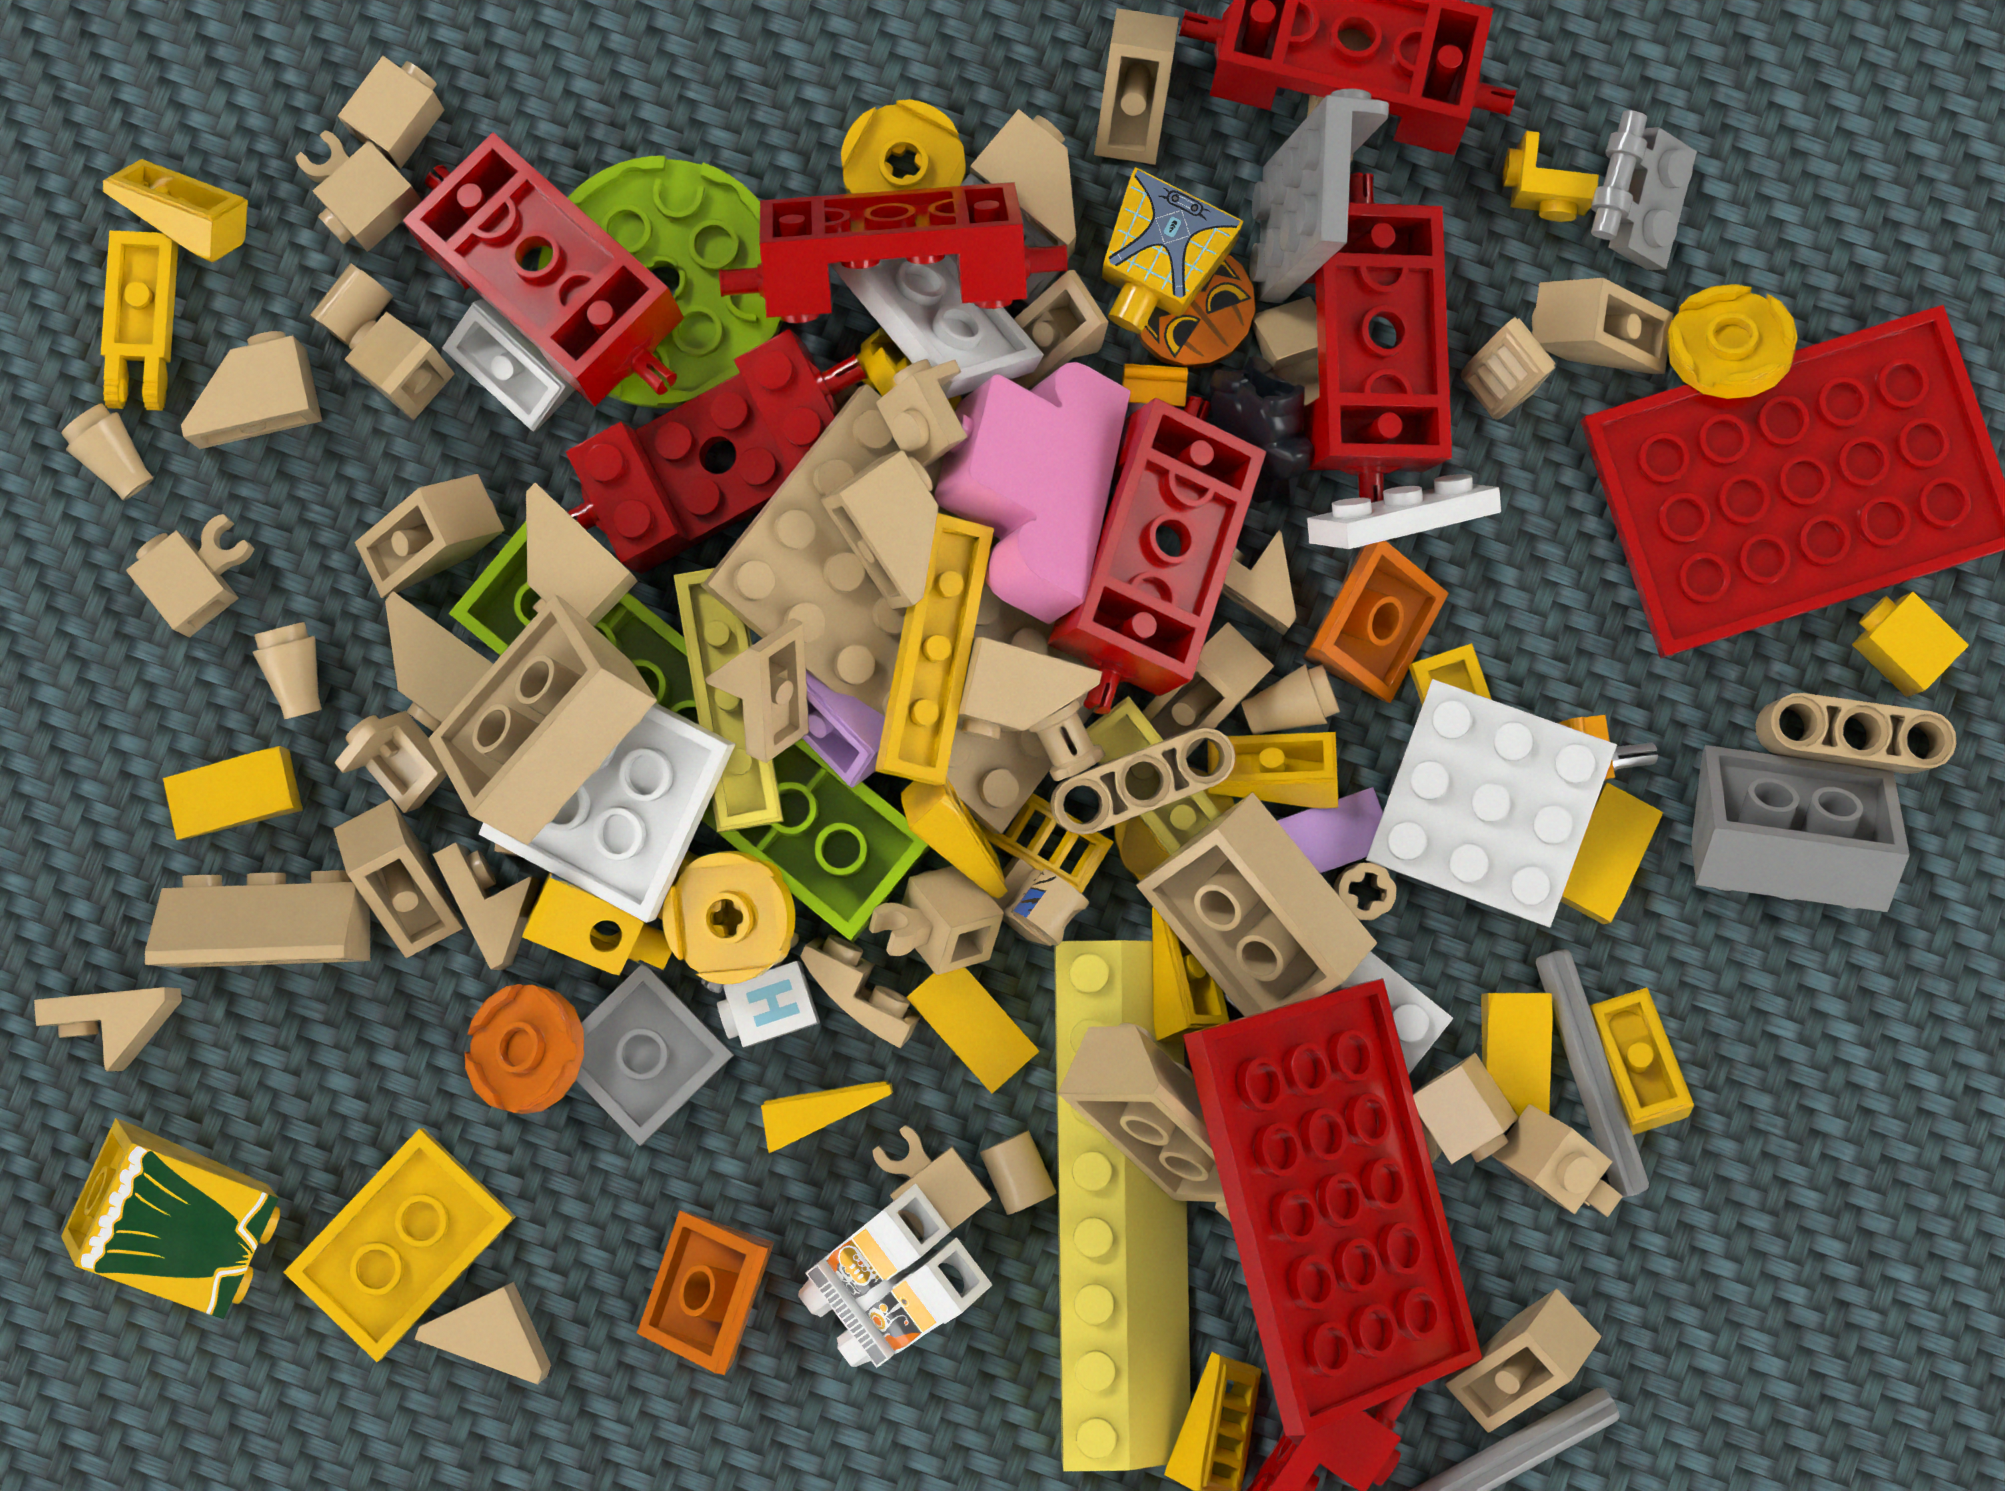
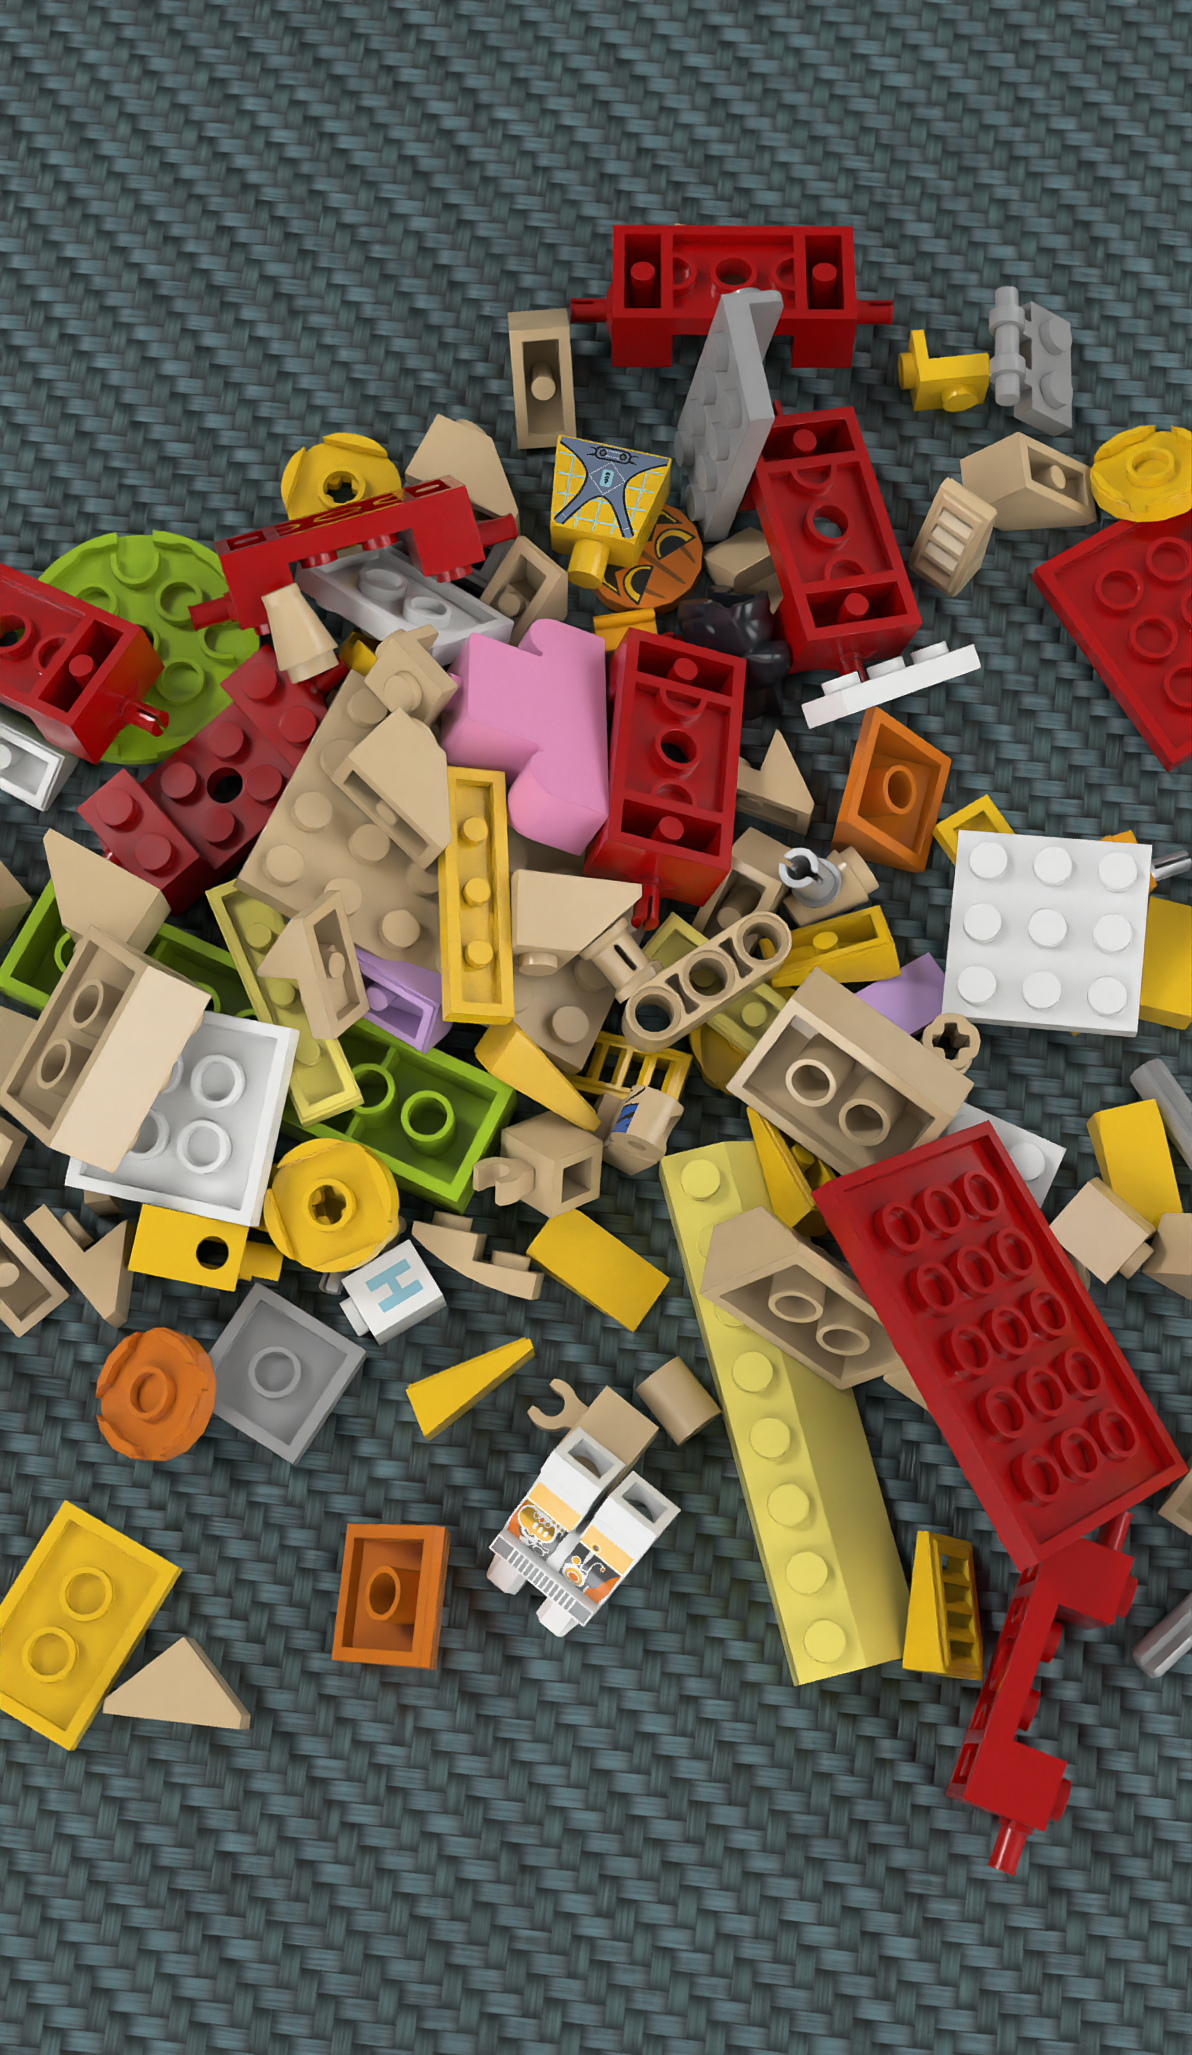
camera: 10 degrees left, 10 degrees down
(821, 339) = (298, 635): none -> tan cone
(1281, 690) = (801, 874): none -> light grey pin

